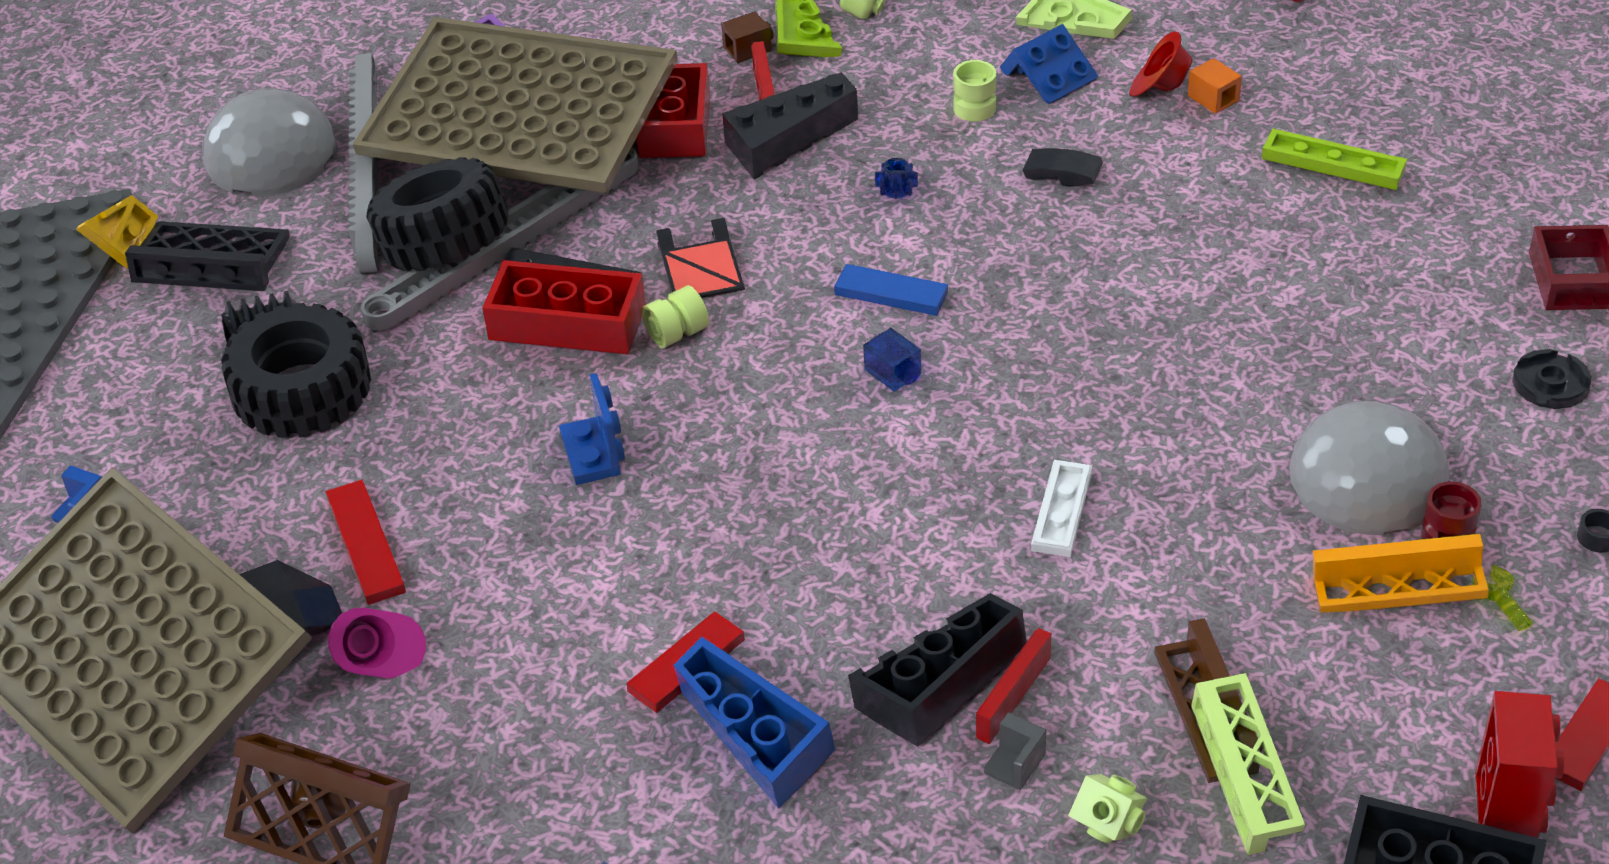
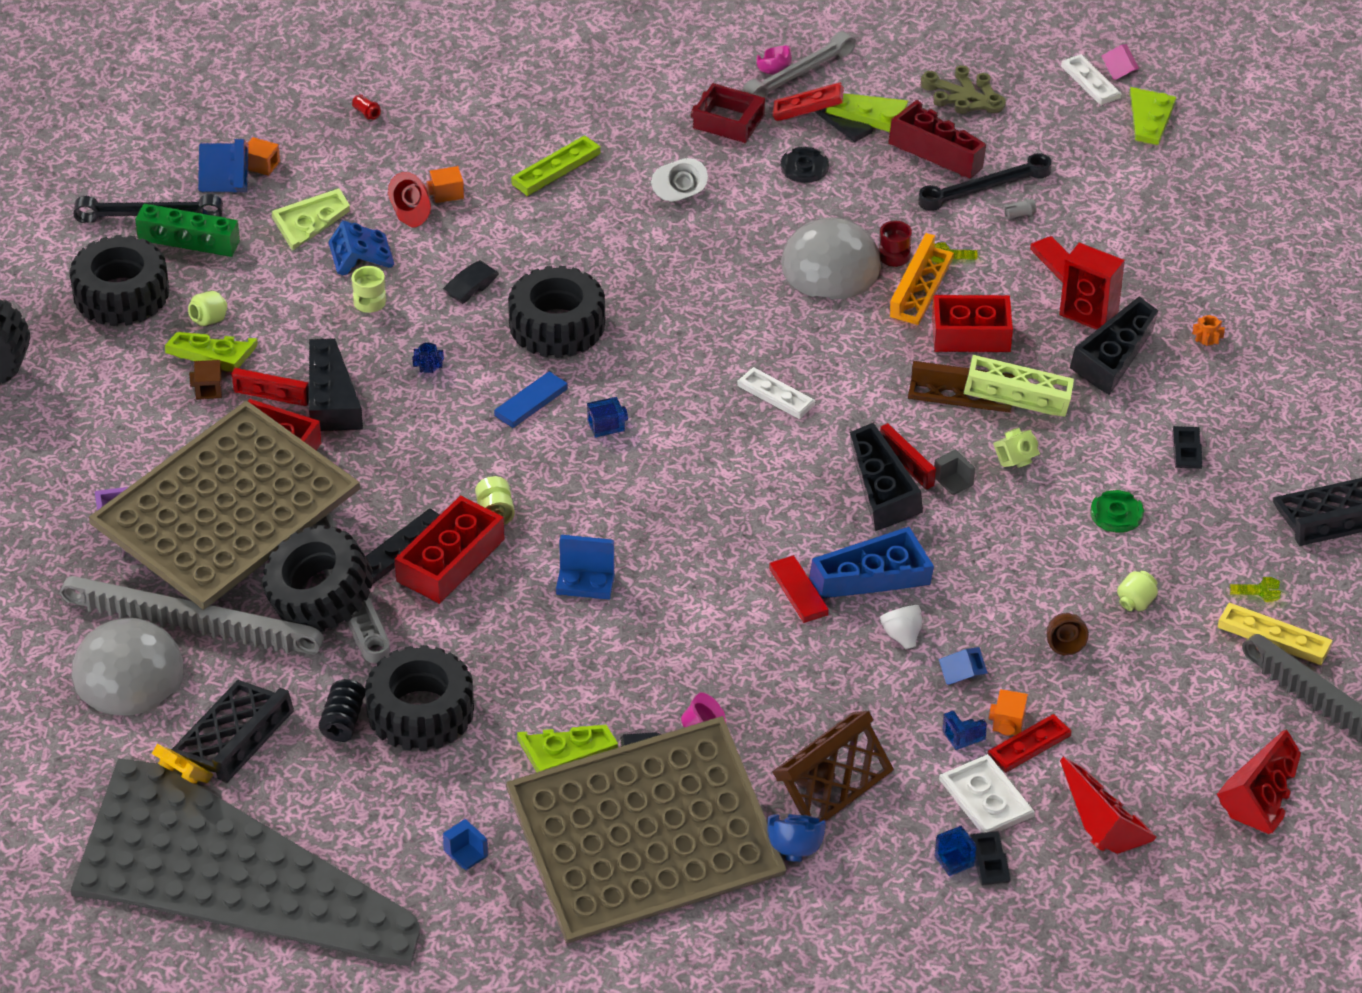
camera: 70 degrees left, 0 degrees up
(180, 806) = (795, 835): none -> blue cylinder
(277, 529) = (559, 748): none -> lime wing
(365, 542) = (598, 710): red tile -> none
(654, 796) = (903, 625): none -> white helmet
(704, 266) = (437, 480): flag -> none
(1045, 274) = (559, 332): none -> black tyre
(1345, 661) = (972, 323): none -> red brick
(1387, 264) = (679, 179): none -> white piece

